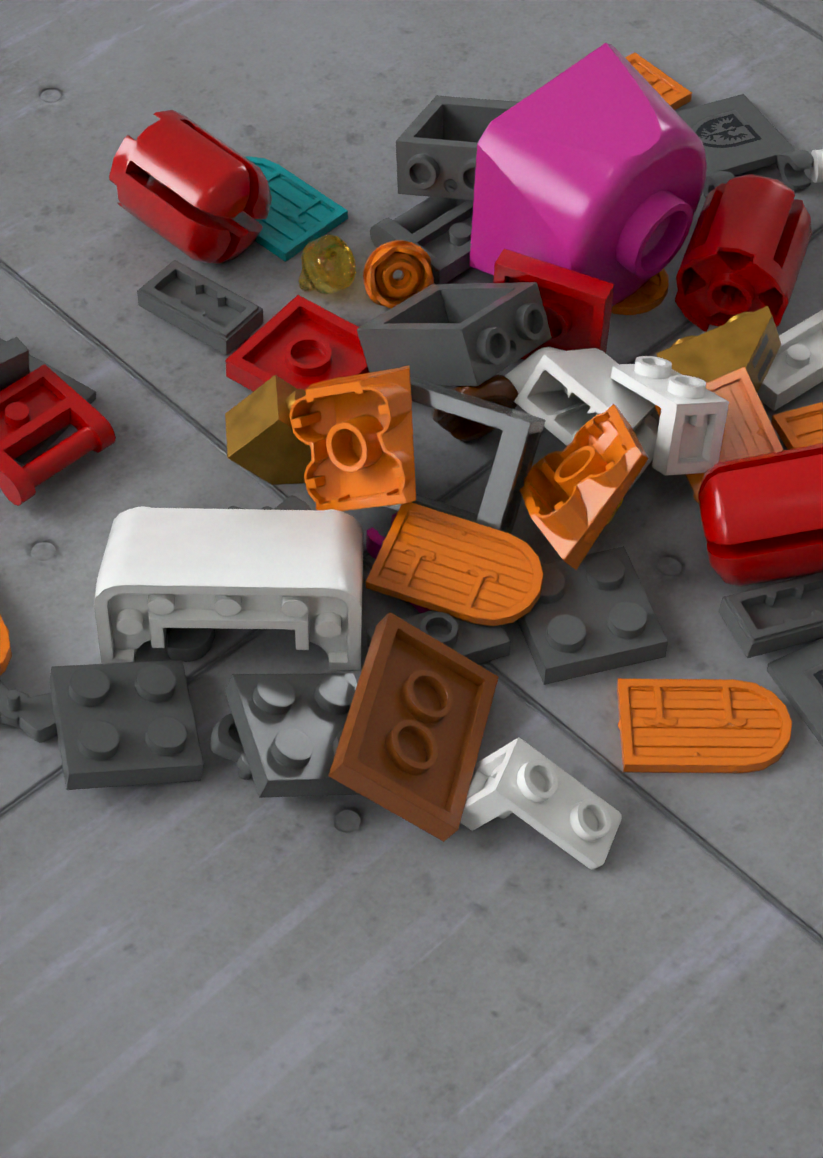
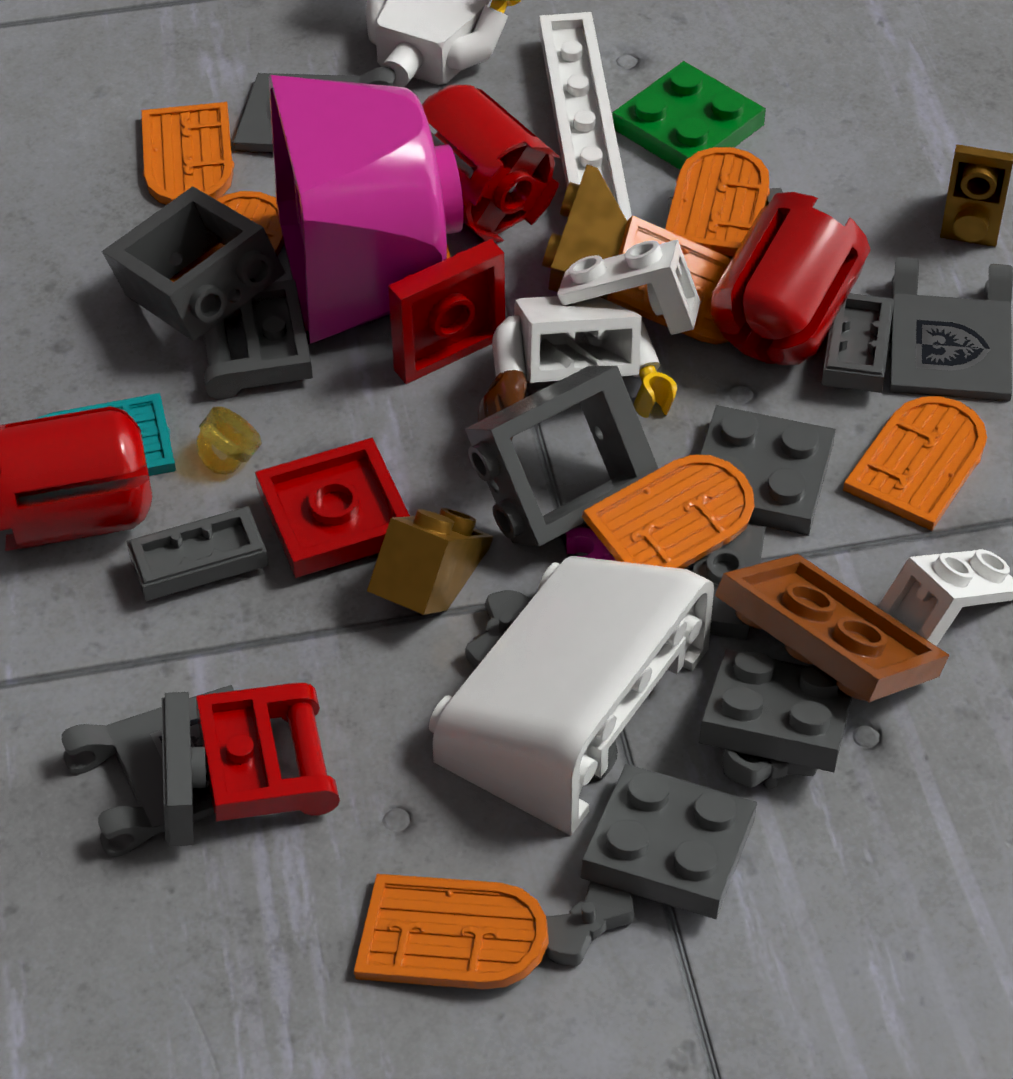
camera: 55 degrees left, 0 degrees up
(358, 440) = (519, 494): orange slope -> none
(394, 256) = (287, 392): orange plate -> none
(457, 332) = (445, 403): dark grey window -> none
(581, 487) = (677, 372): orange slope -> none

